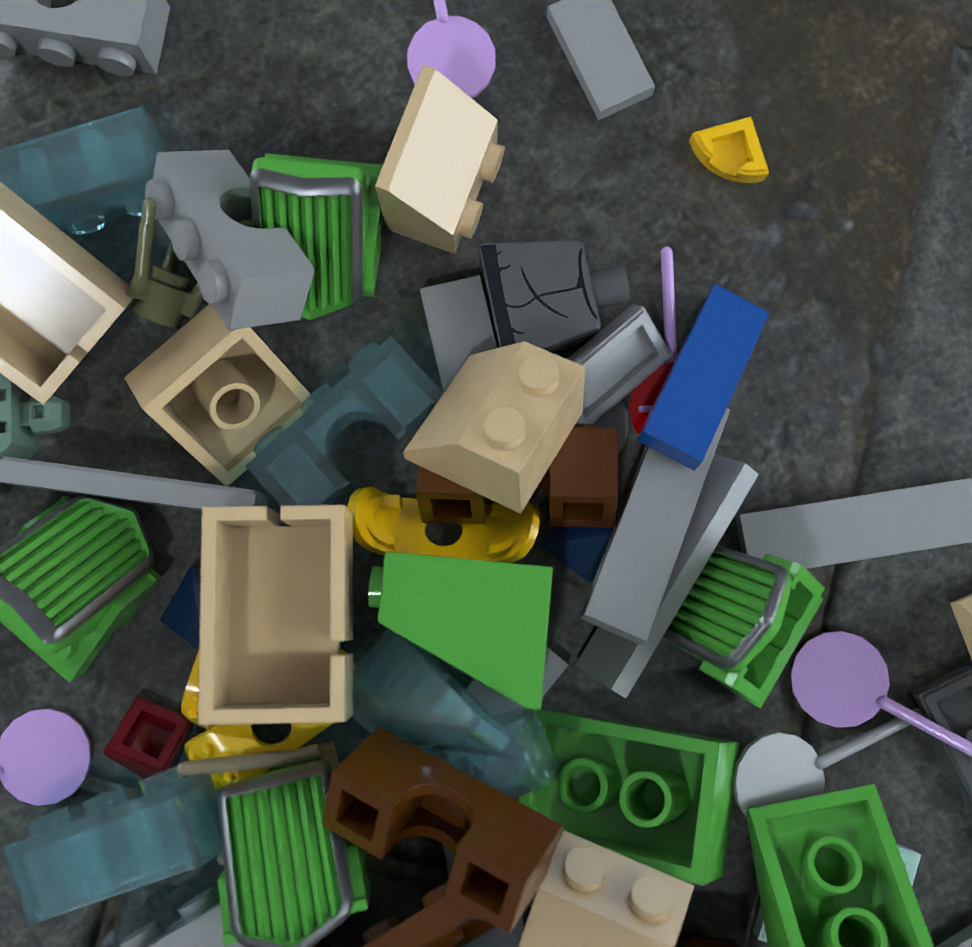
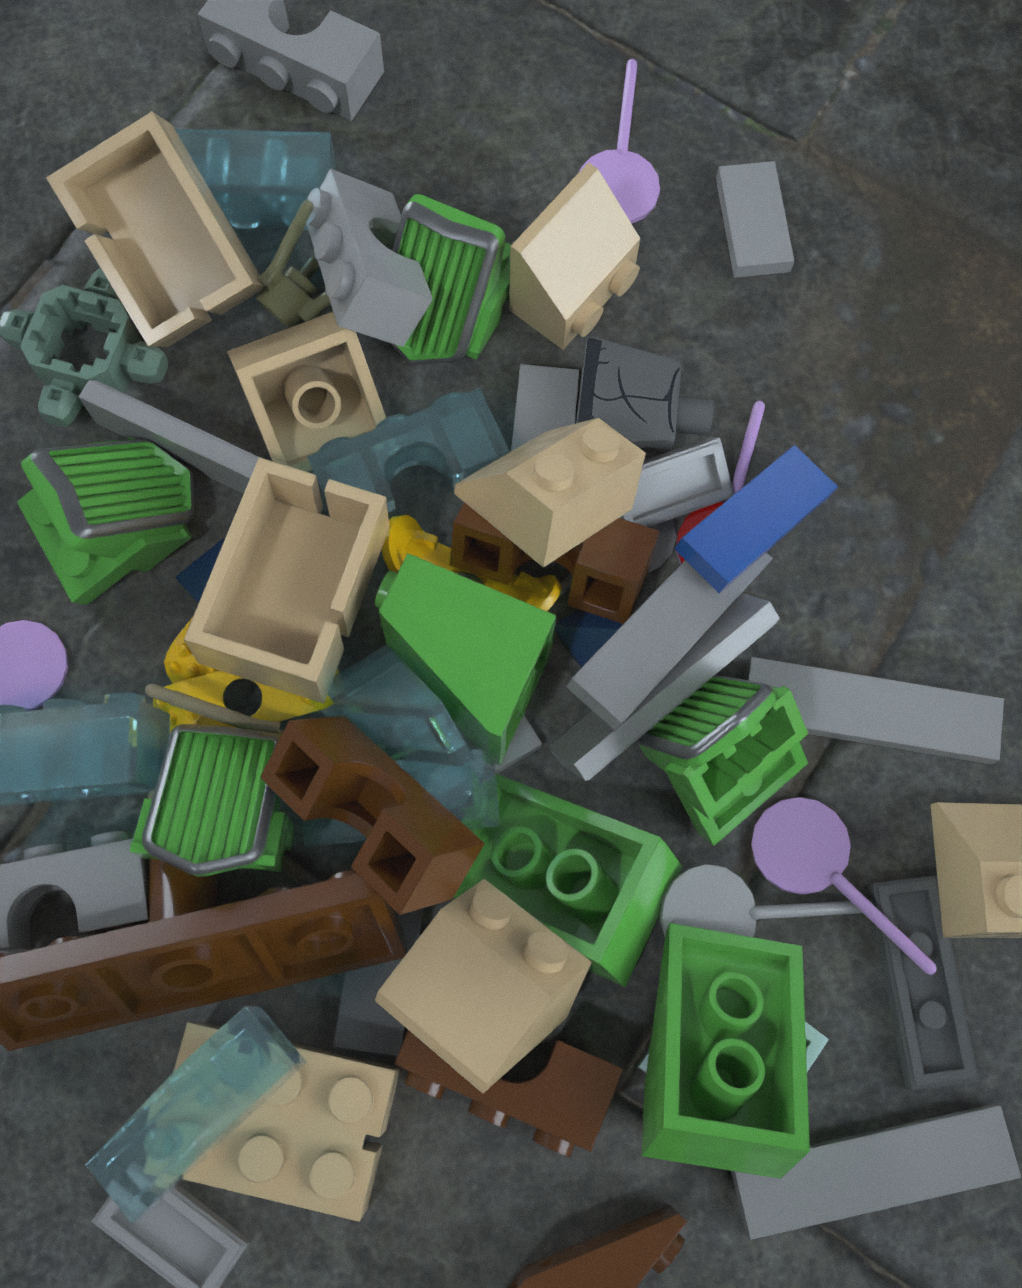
camera: 15 degrees right, 10 degrees down
(149, 738) = (122, 670): dark red slope -> none
(731, 151) = (847, 339): yellow tile -> none

